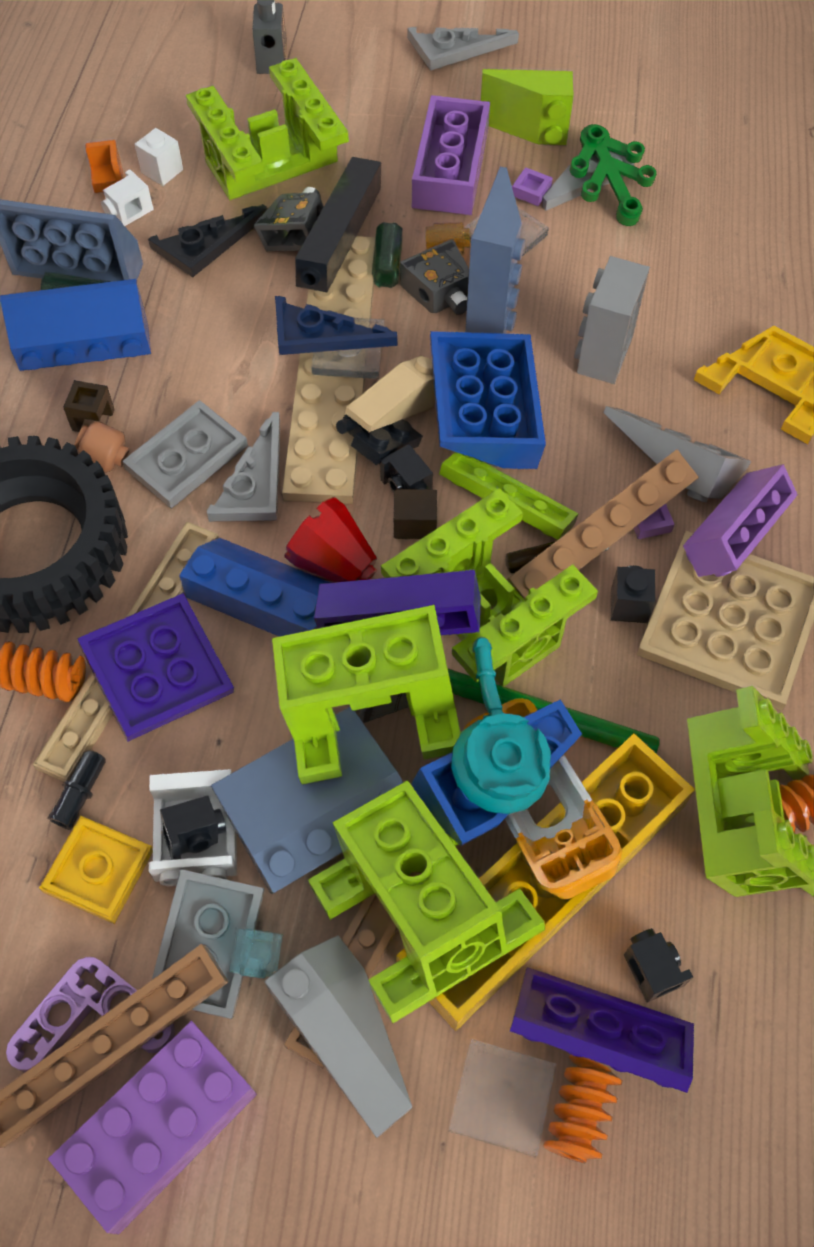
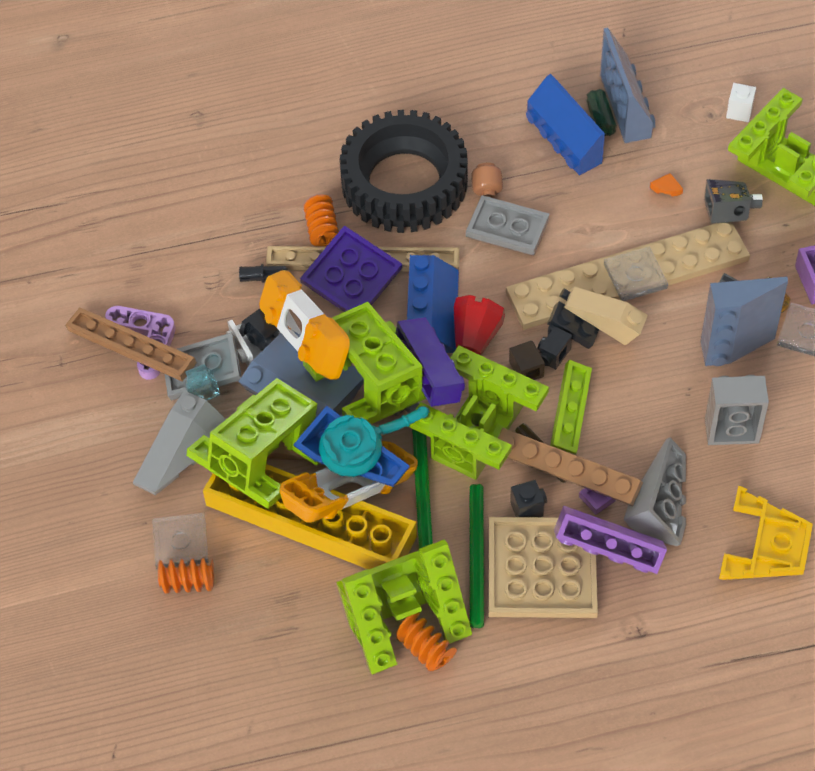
camera: 70 degrees right, 5 degrees down
(87, 402) = (511, 157): dark brown panel -> none
(97, 869) = (223, 302): yellow tile -> none
(104, 164) = (716, 80): orange panel -> none
(127, 199) = (693, 103): white brick -> none
(152, 1129) = (101, 385): medium lavender brick -> none
(205, 241) = (685, 161): black wing -> none
(227, 273) = (666, 185): none -> orange tile
(253, 487) = (507, 269): light grey wing -> none
(306, 728) = (322, 340): none -> light orange piece
(322, 331) = (628, 245): dark blue wing -> none
(338, 225) = (736, 224): black brick -> none
(387, 255) = (737, 266): clear green axle -> none
(488, 397) = (634, 363): blue slope -> none
(605, 1029) = (233, 569): dark purple plate -> none
(655, 965) = (283, 588): black brick -> none
(657, 678) = (476, 556): none -> green axle

